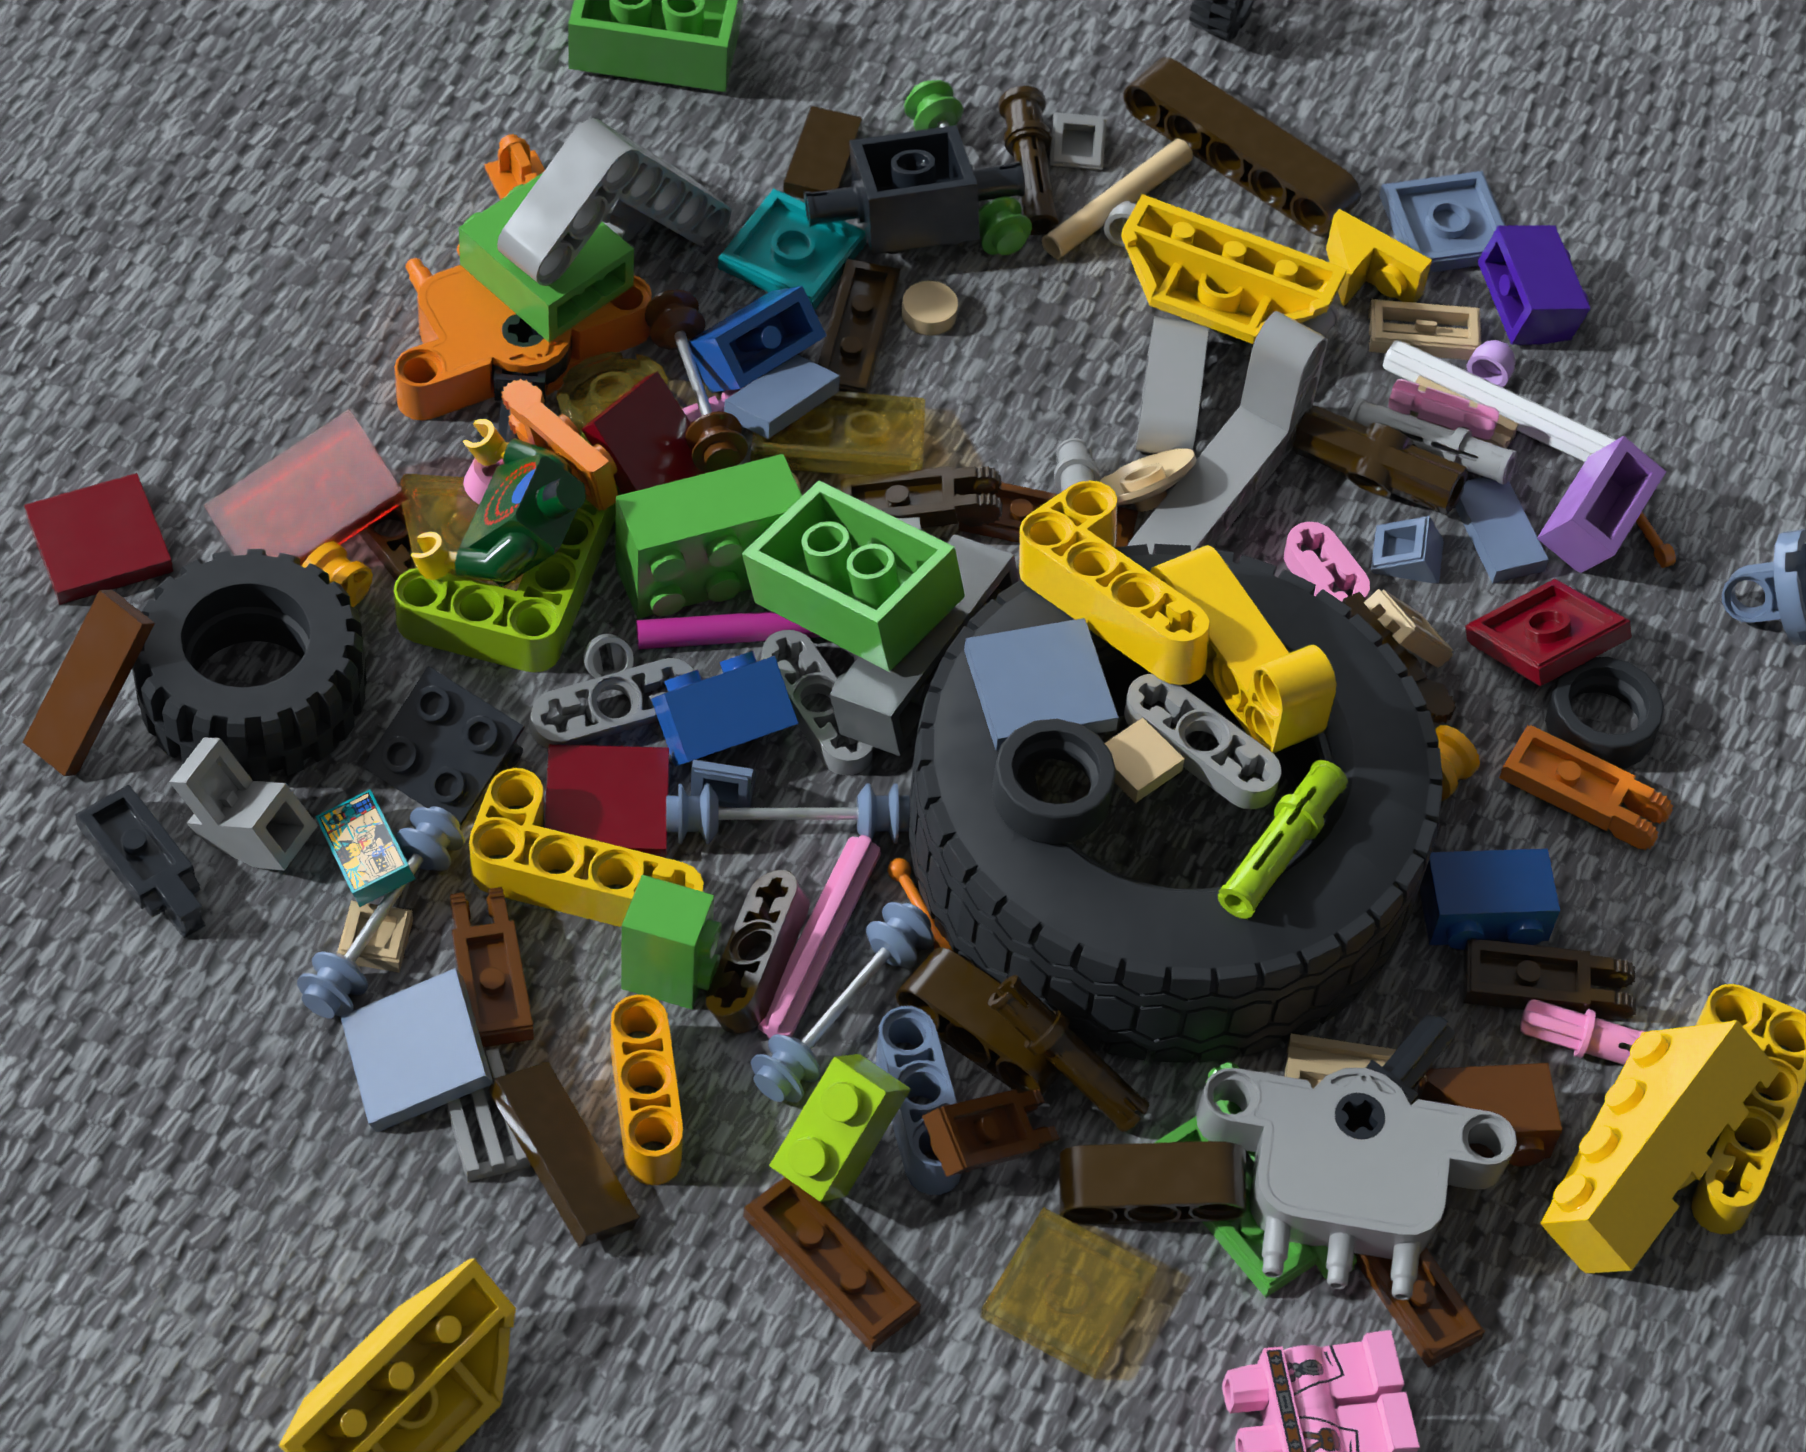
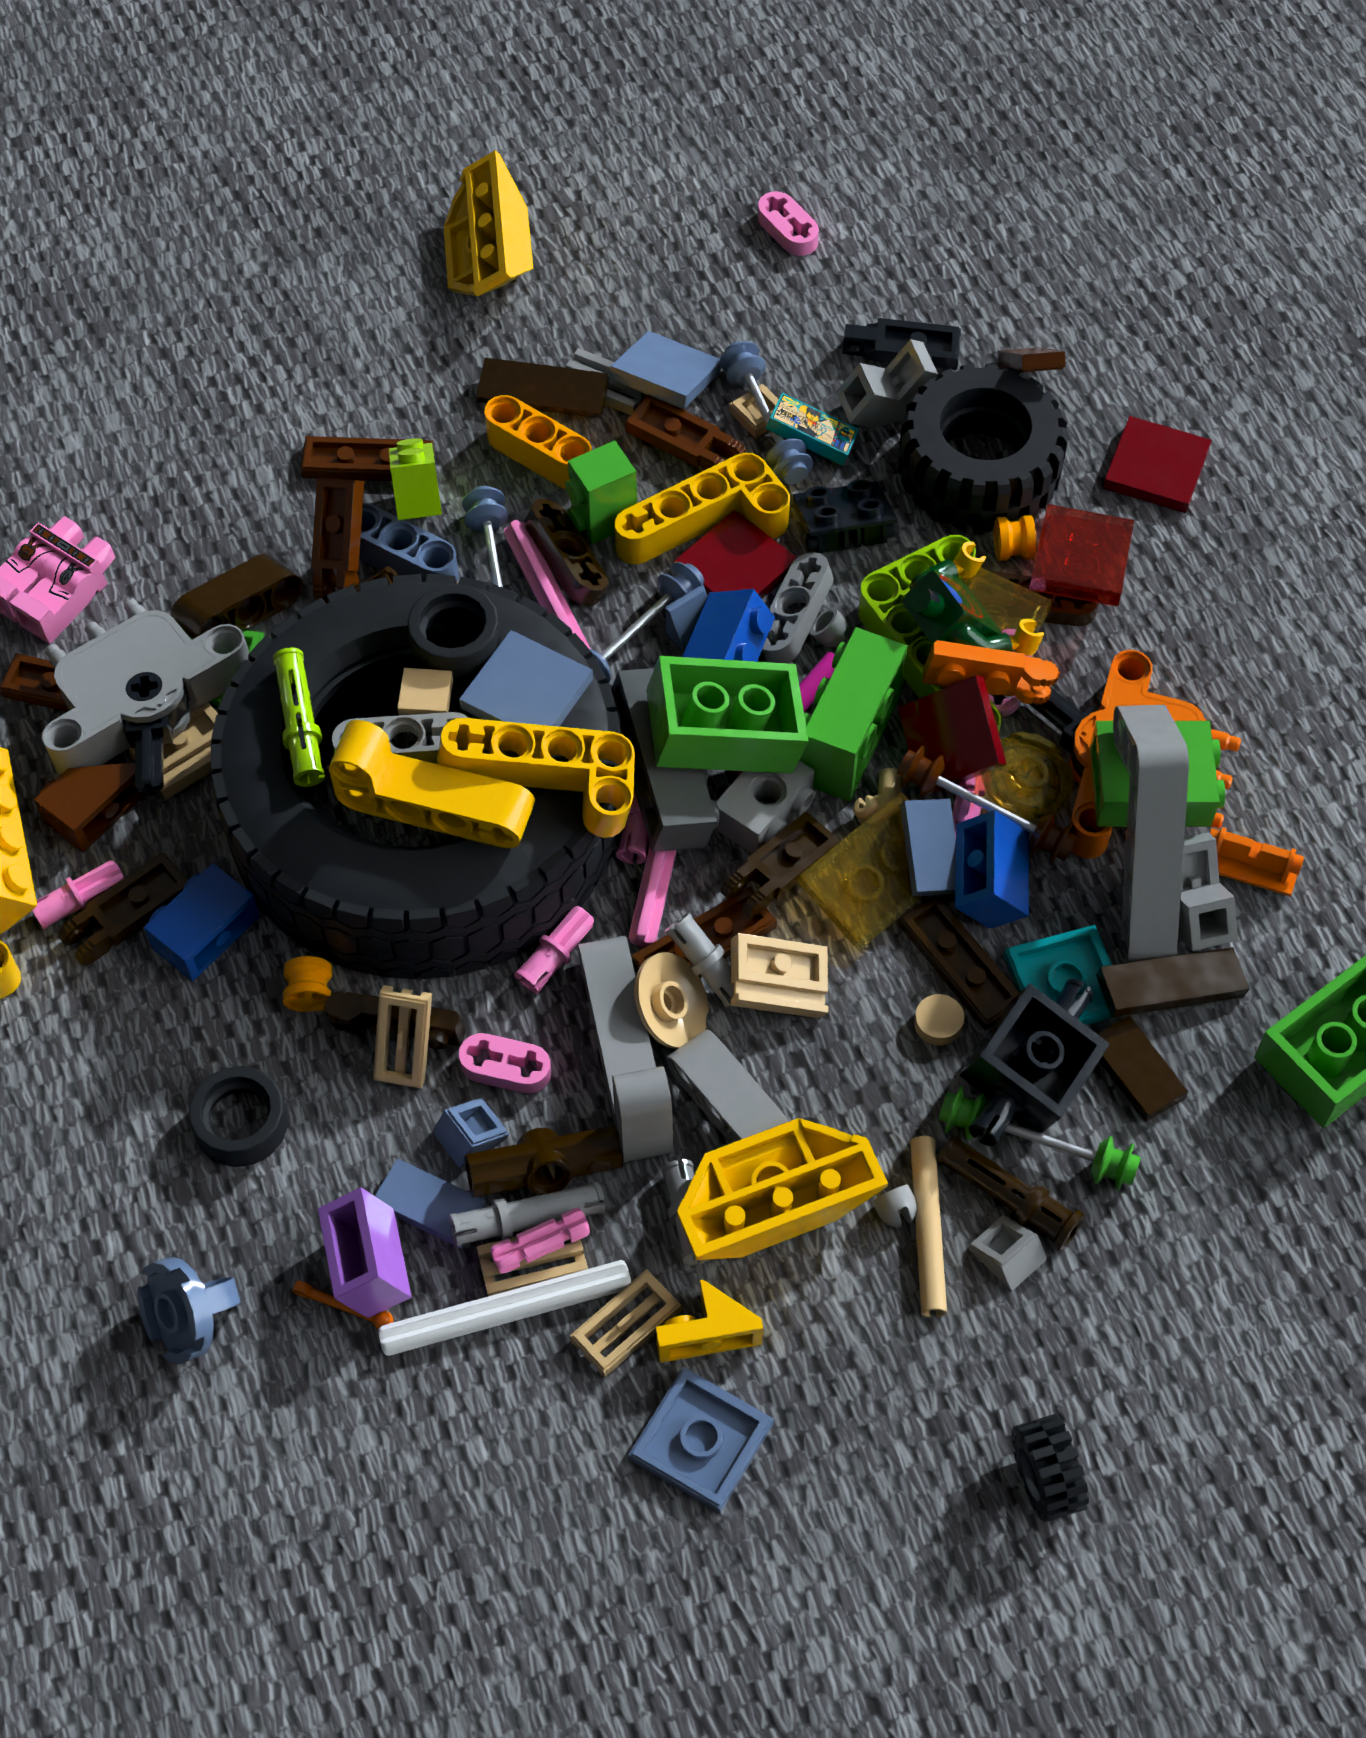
camera: 140 degrees right, 5 degrees up
(37, 1113) = (793, 219): none -> bright pink beam
(727, 170) = (1172, 982): none -> dark brown tile
(1028, 423) = (779, 975): none -> tan plate
(1068, 1292) = (233, 533): clear yellow tile -> none
(1242, 145) = (896, 1347): dark brown beam -> none
(1493, 362) = (550, 1329): lavender hinge -> none
(1533, 284) = (580, 1421): dark purple brick -> none
(1548, 632) = (320, 1133): dark red tile -> none
(1586, 787) = (206, 1051): orange hinge -> none

